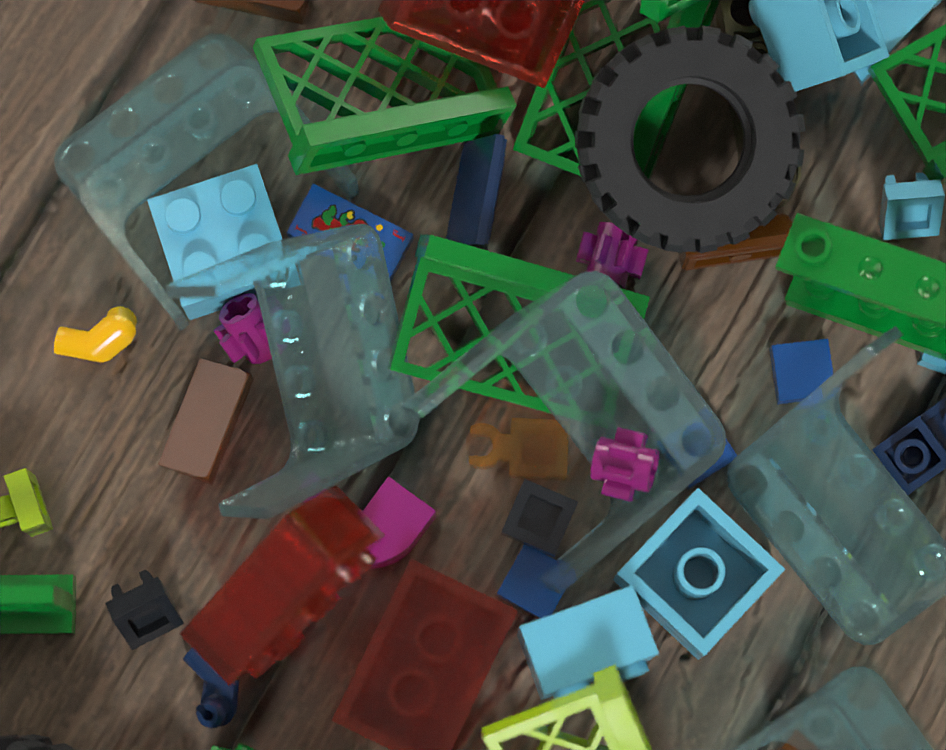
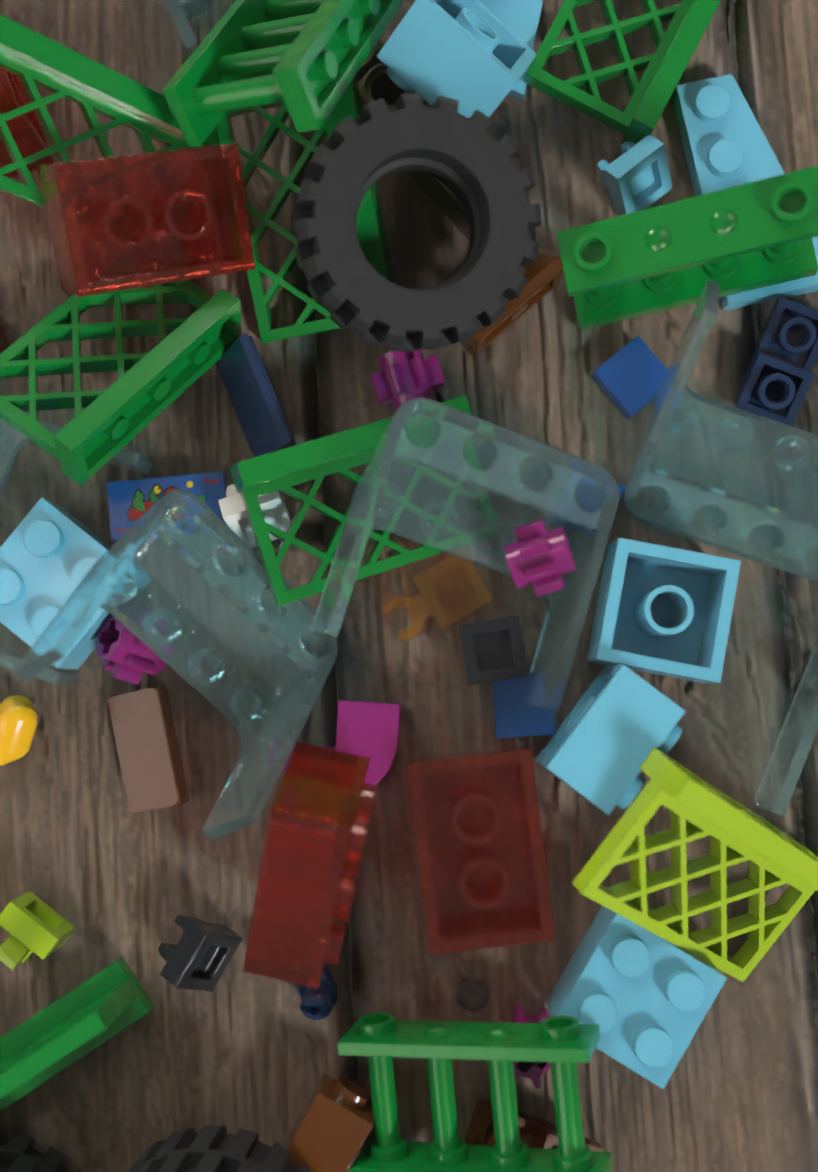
camera: 25 degrees left, 5 degrees up
(401, 276) = (236, 518): none -> white tile

